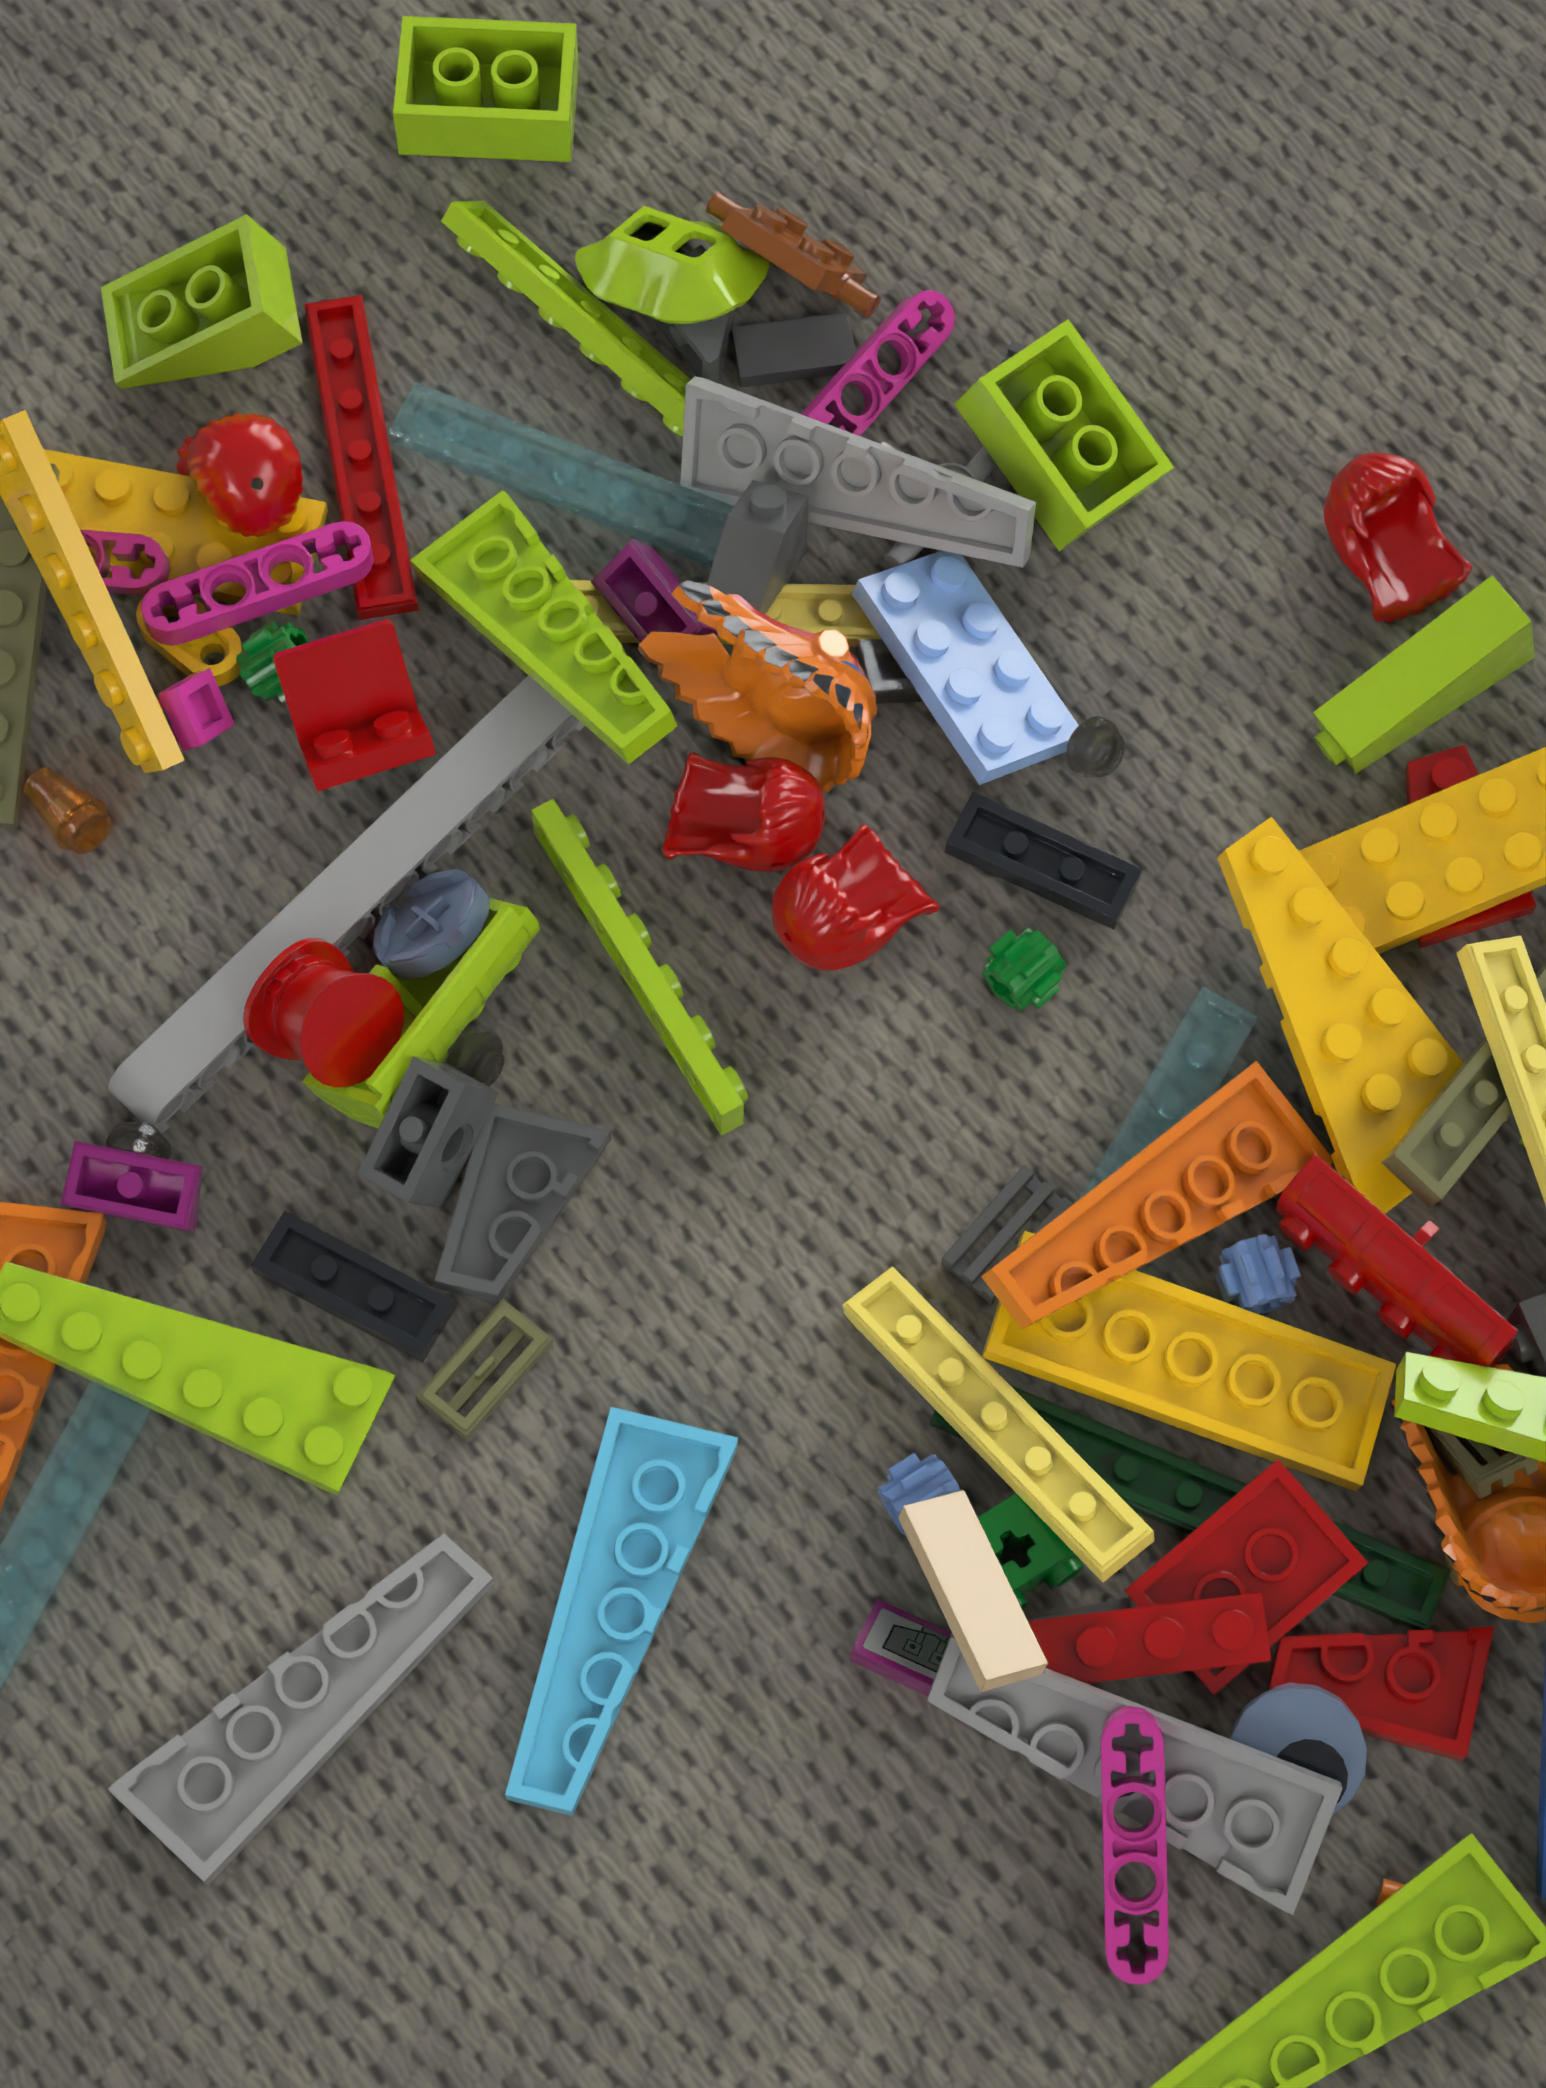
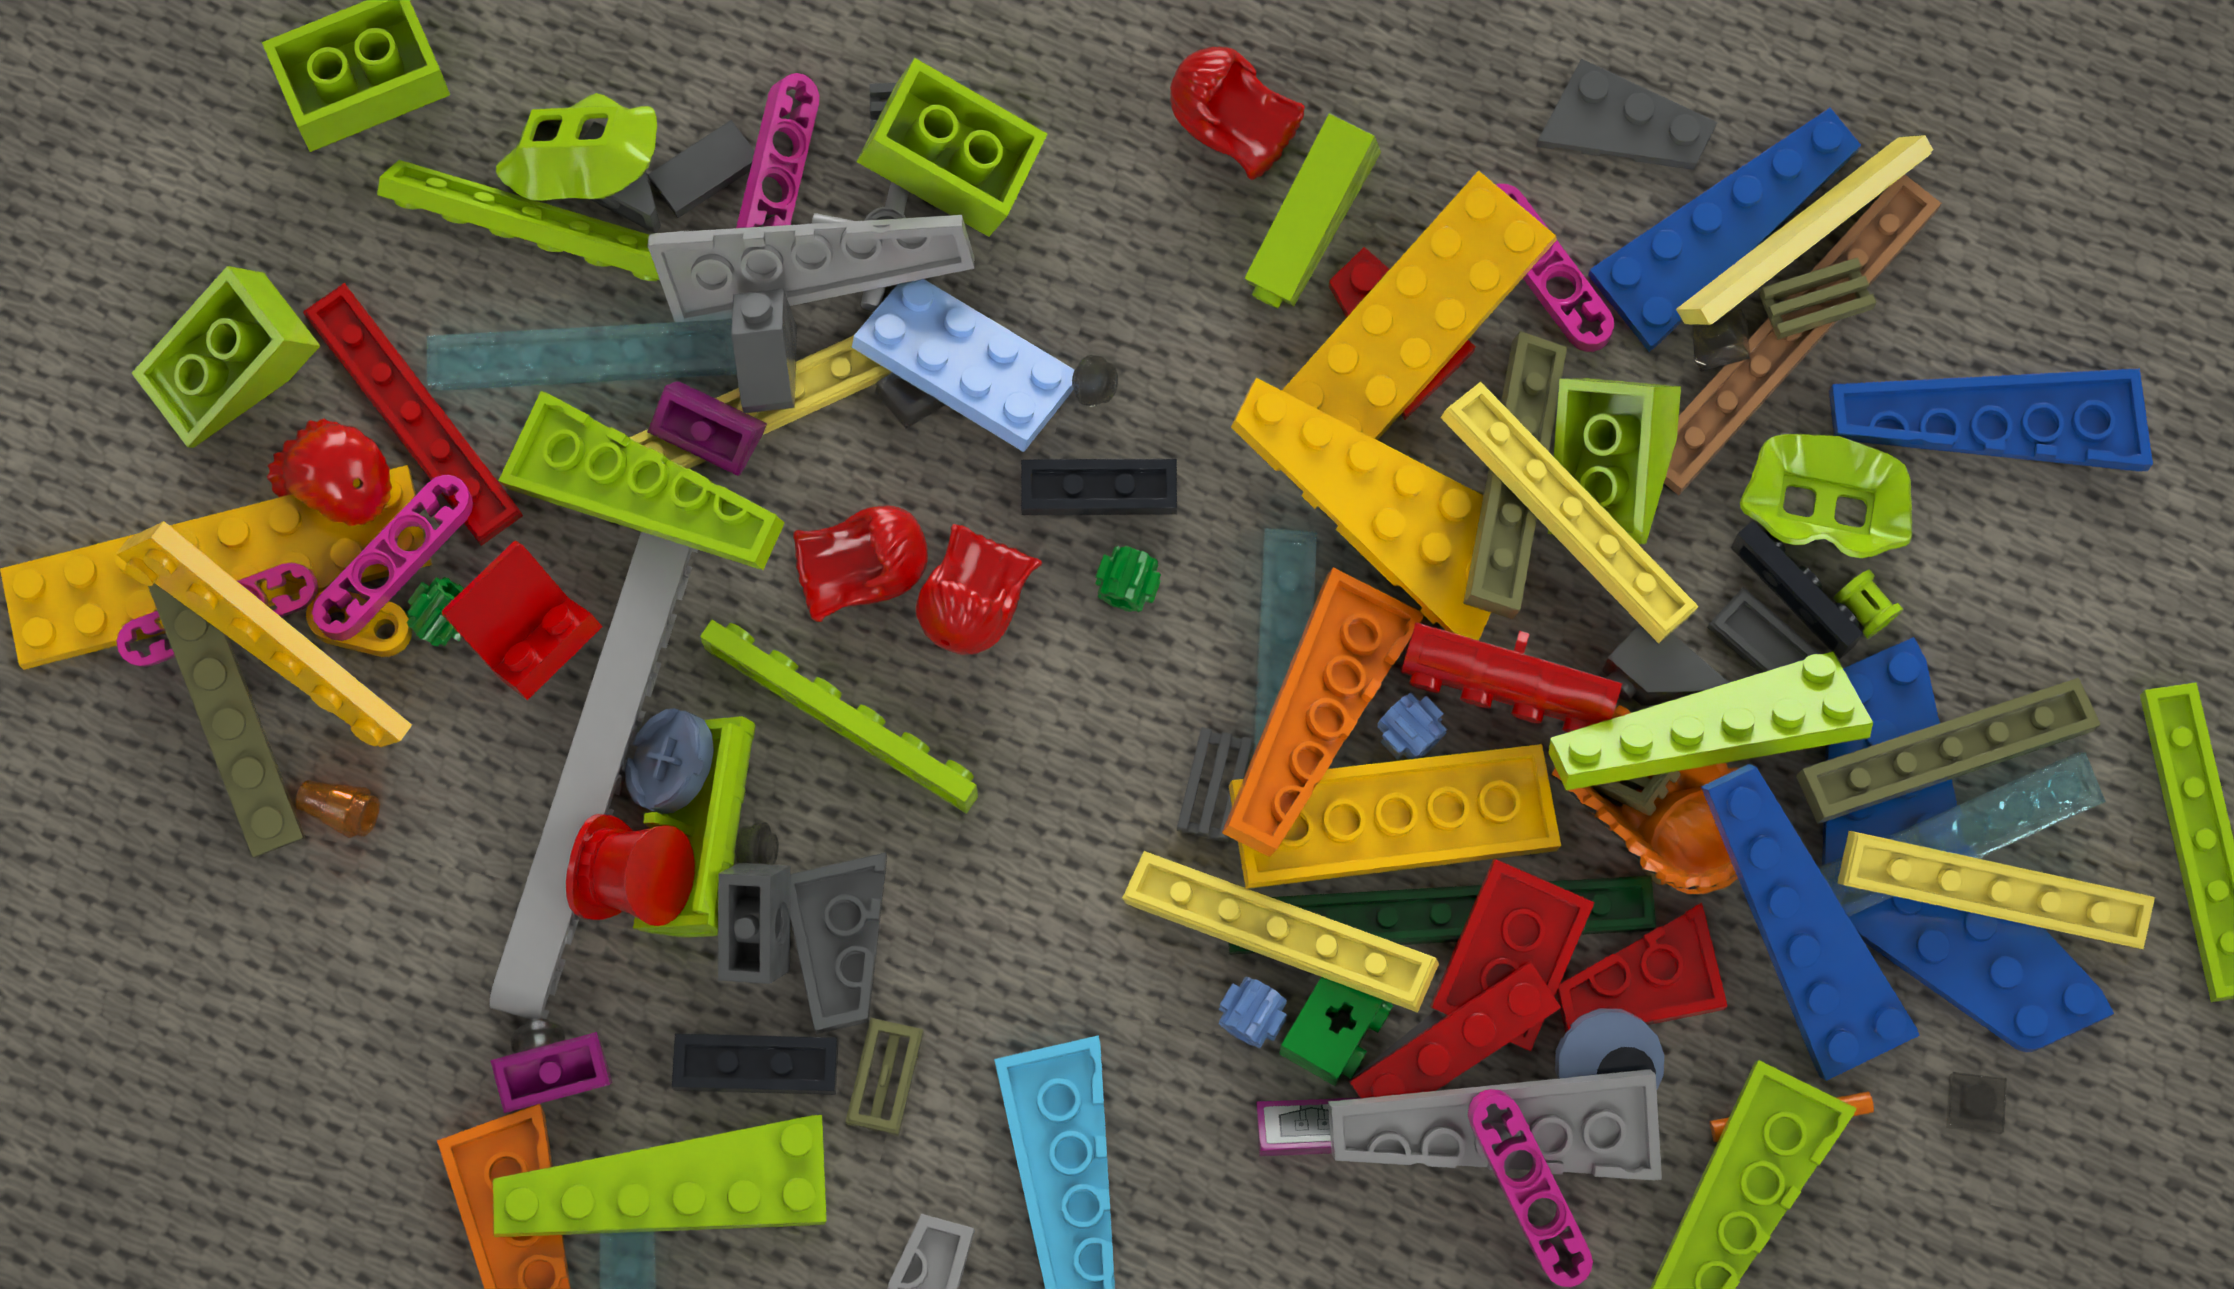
camera: 25 degrees left, 5 degrees up
(195, 709) = (397, 680): dark pink tile -> none
(778, 691) = (837, 456): orange piece -> none
(782, 241) = (671, 93): dark orange plate -> none
(972, 1591) = (1329, 1065): tan tile -> none

